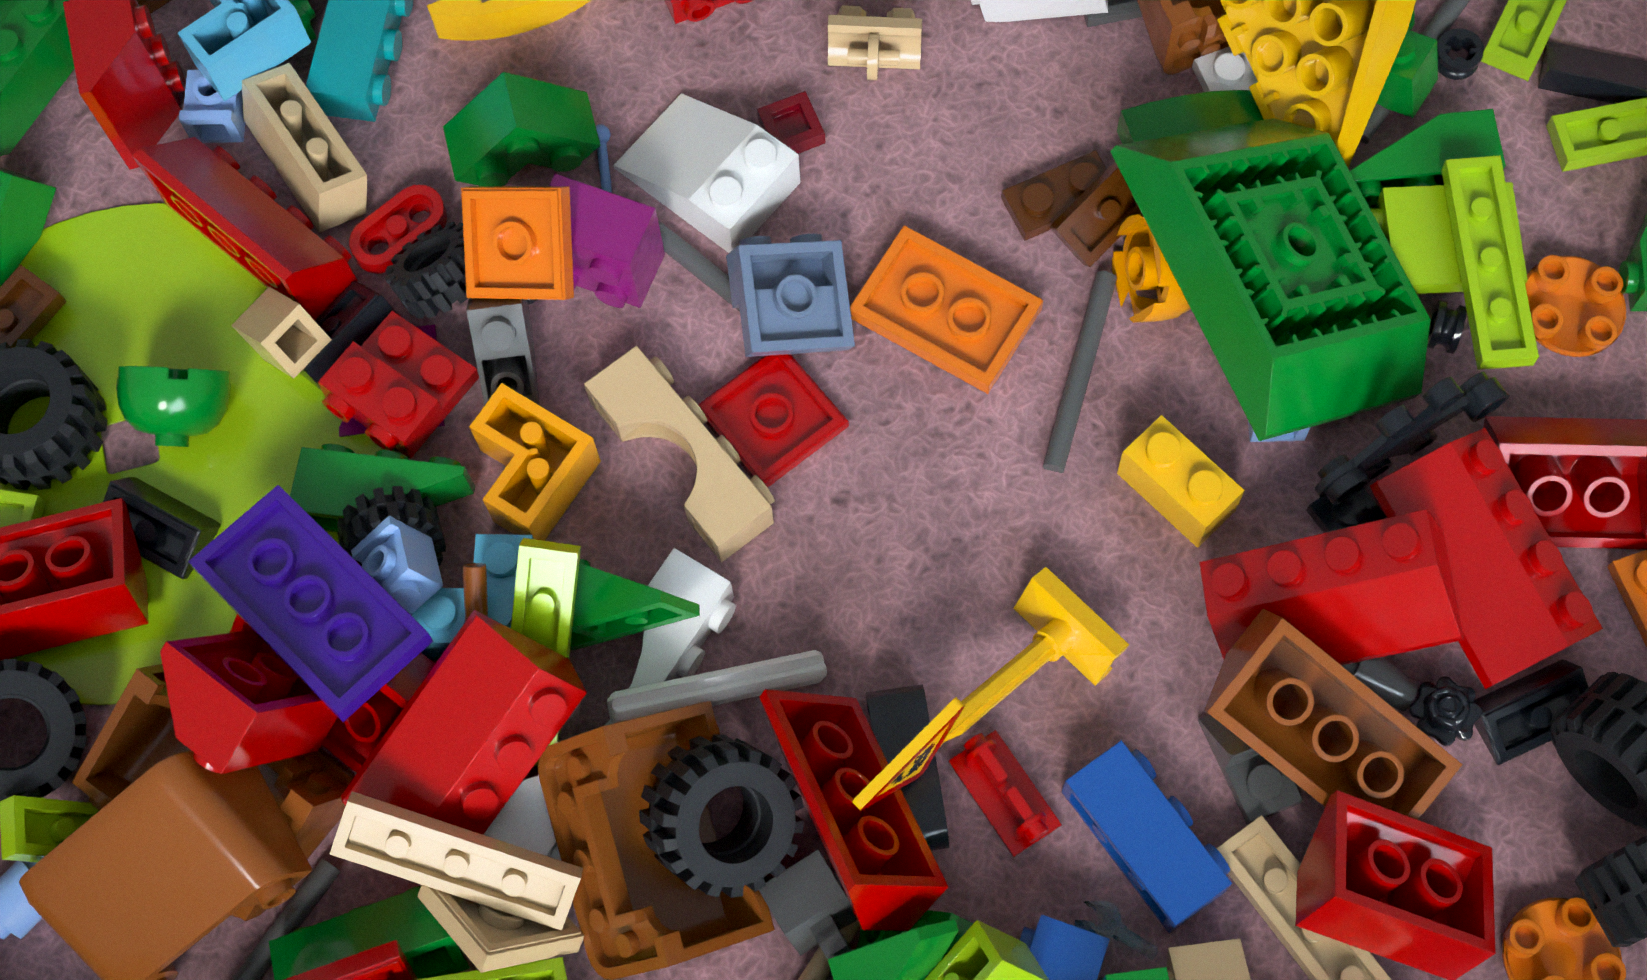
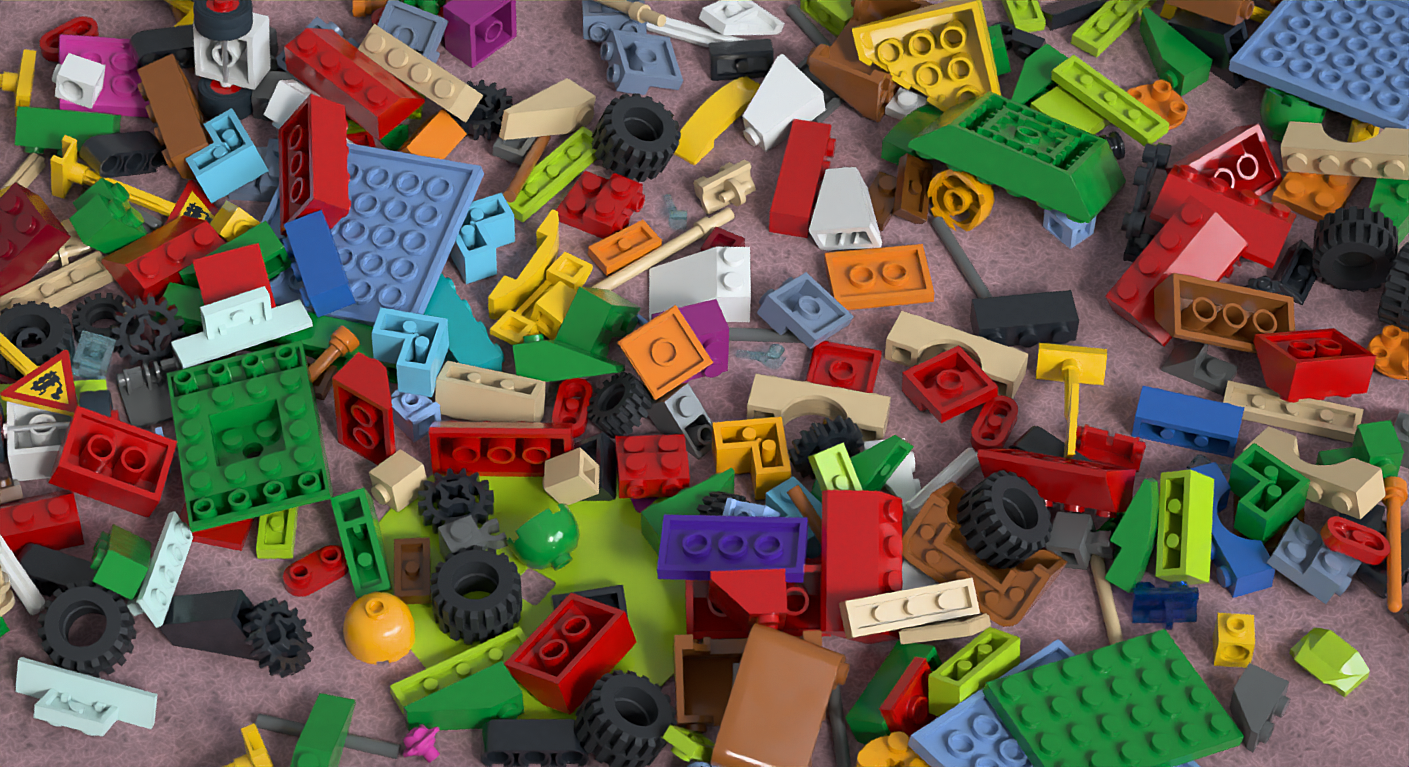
camera: 45 degrees left, 20 degrees down
(90, 333) = (466, 534): none -> dark grey brick
(104, 187) = (397, 480): none -> tan brick
(125, 253) = (455, 499): none -> black gear
(415, 153) = (558, 360): none -> green slope
(463, 71) = (515, 325): none -> yellow slope
(482, 66) = (552, 309): none -> yellow brick
(616, 521) = (823, 437): none -> black gear
(673, 44) = (624, 247): none -> orange plate
(705, 330) = (771, 358): none -> clear light blue hand
(779, 44) = (677, 218): none -> clear light blue hand
(791, 82) = (700, 229): none -> tan bar
(870, 541) = (948, 384): none -> red plate
(883, 639) = (992, 426): none -> red plate
(901, 443) = (920, 339): none -> tan arch
(980, 93) = (801, 177): none -> red brick
(982, 183) = (844, 213): none -> white slope
(1070, 513) = (1026, 318): none -> black brick
(1179, 481) = (1060, 272): yellow brick -> none
(1471, 90) = (1026, 43): none -> black plate

